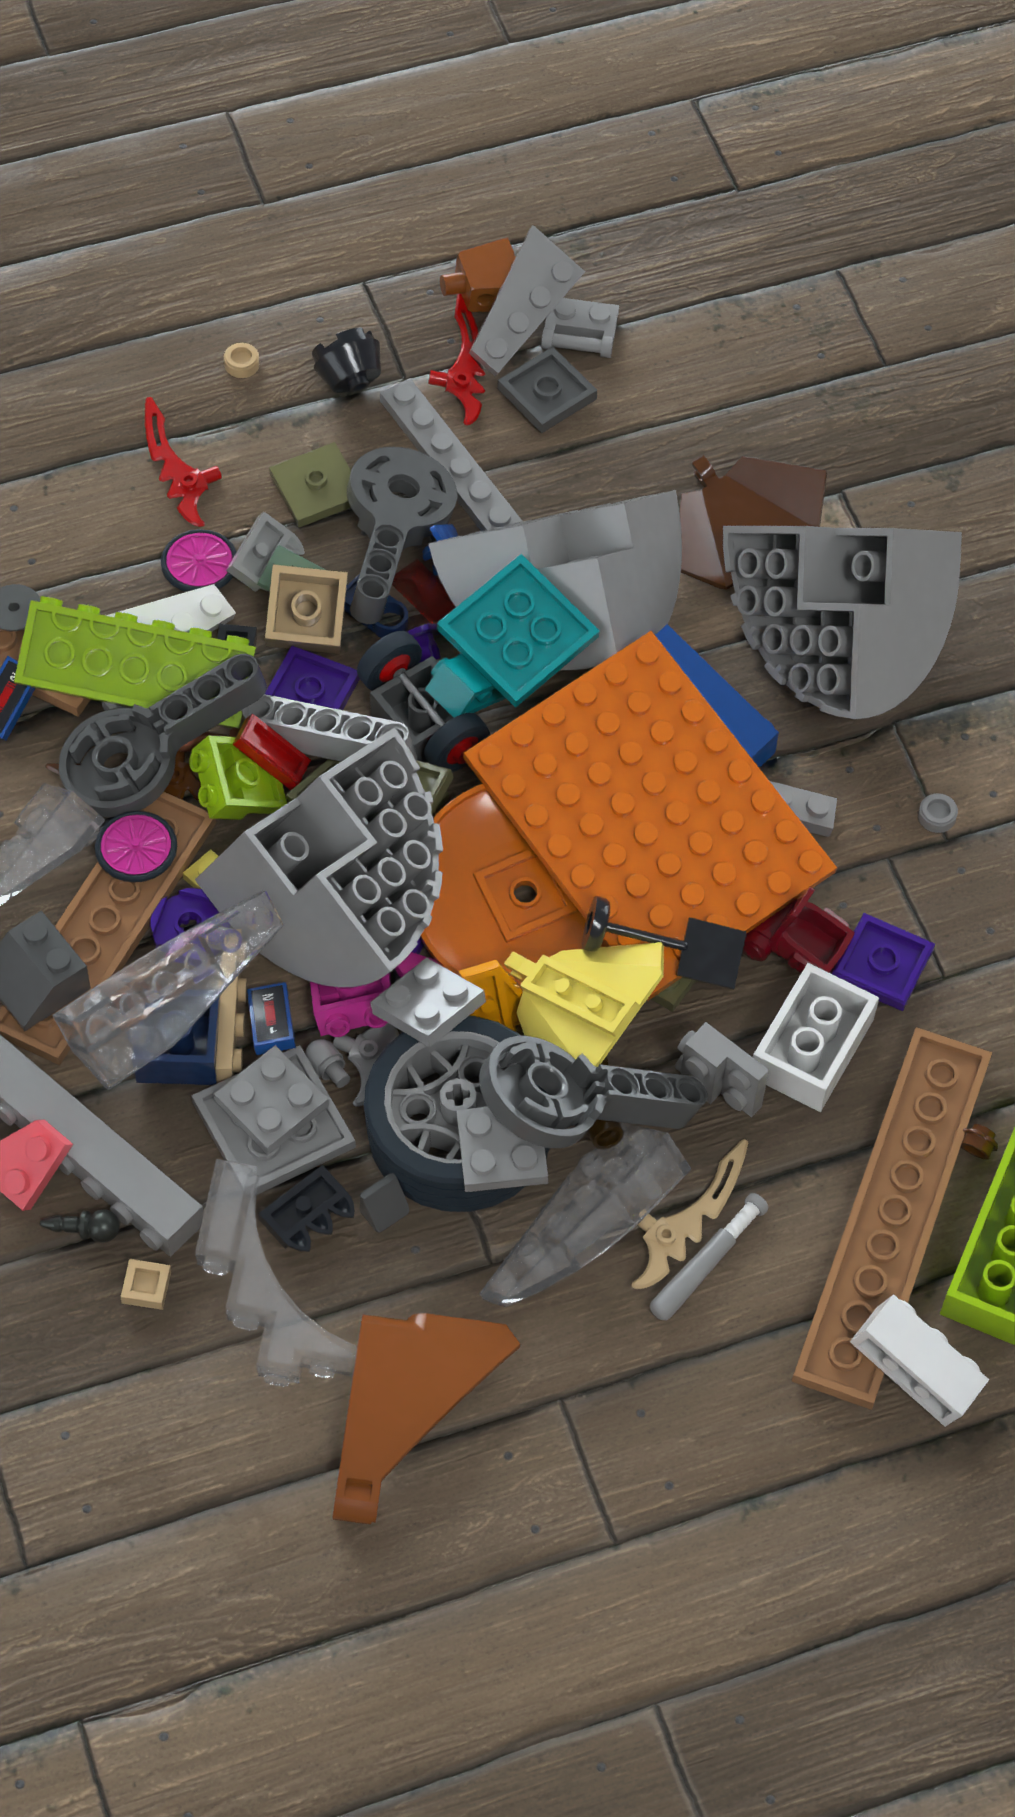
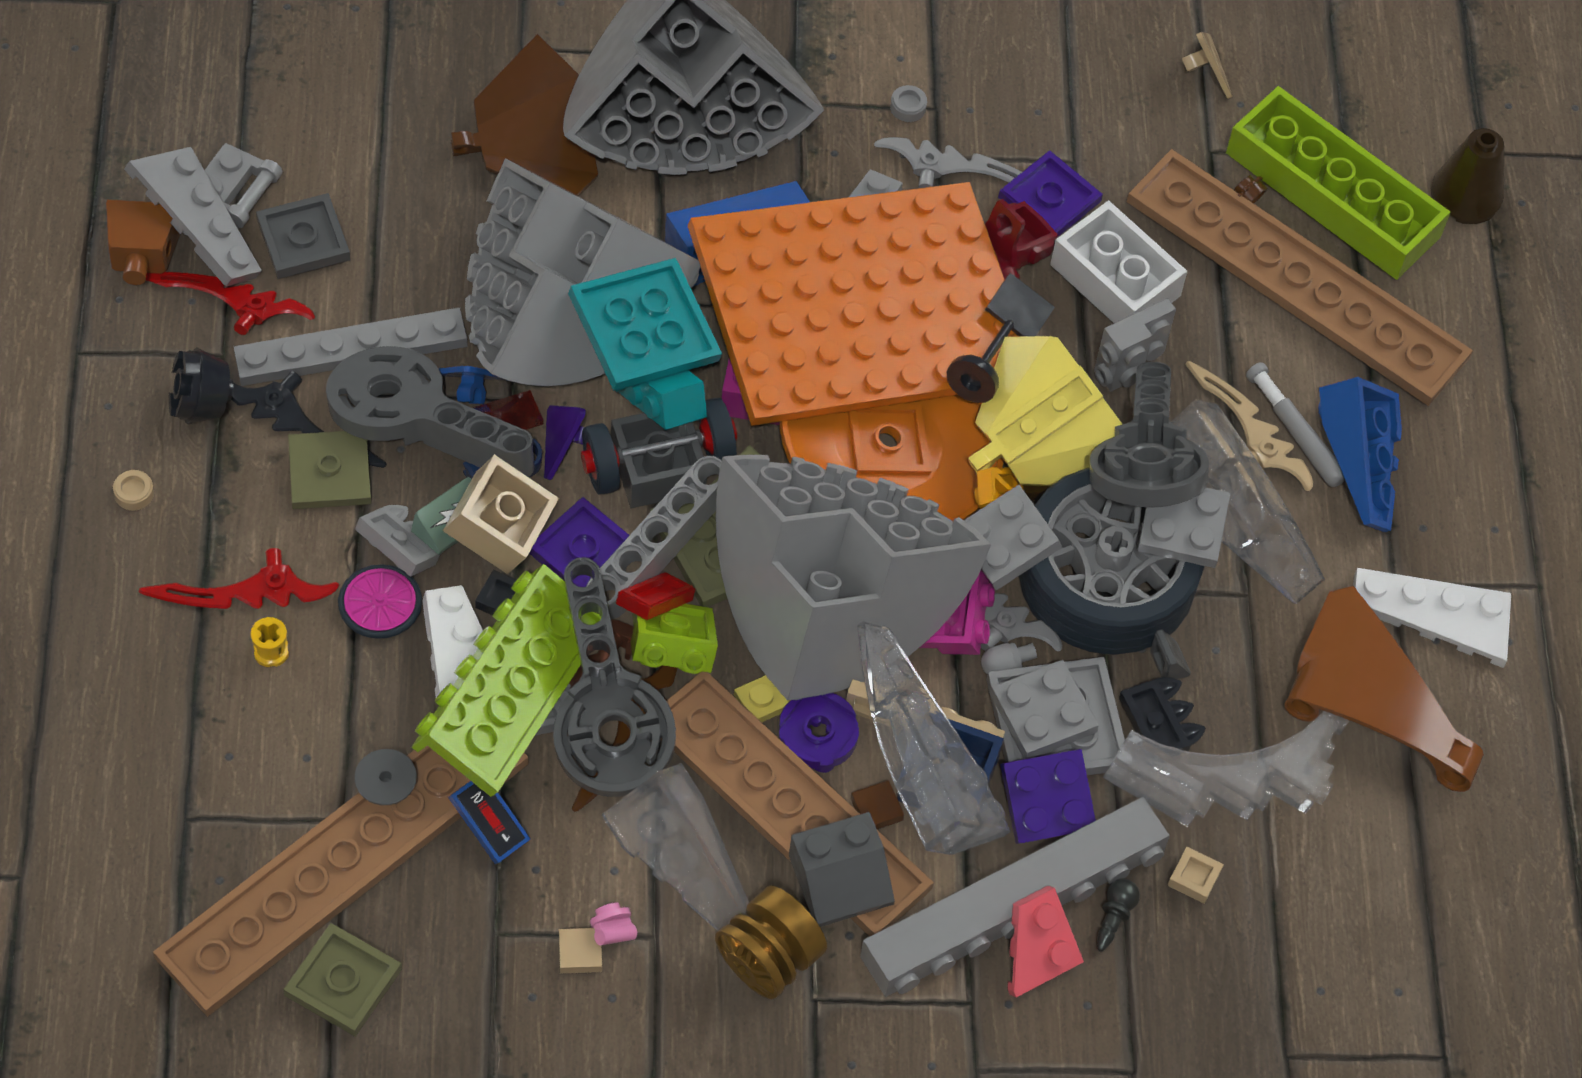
camera: 75 degrees left, 0 degrees up
(117, 488) = (270, 642): none -> yellow bush
(136, 846) = (718, 747): dark pink wheel -> none
(183, 1130) = (1048, 795): none -> dark purple plate
(271, 1017) = (958, 687): tile -> none
(368, 429) = (279, 402): none -> black piece
(541, 1454) = (1455, 613): none -> white wing
(705, 1325) = (1362, 429): none -> blue wedge
(875, 851) = (932, 164): none -> light grey piece
(920, 1360) = (1449, 300): white brick -> none

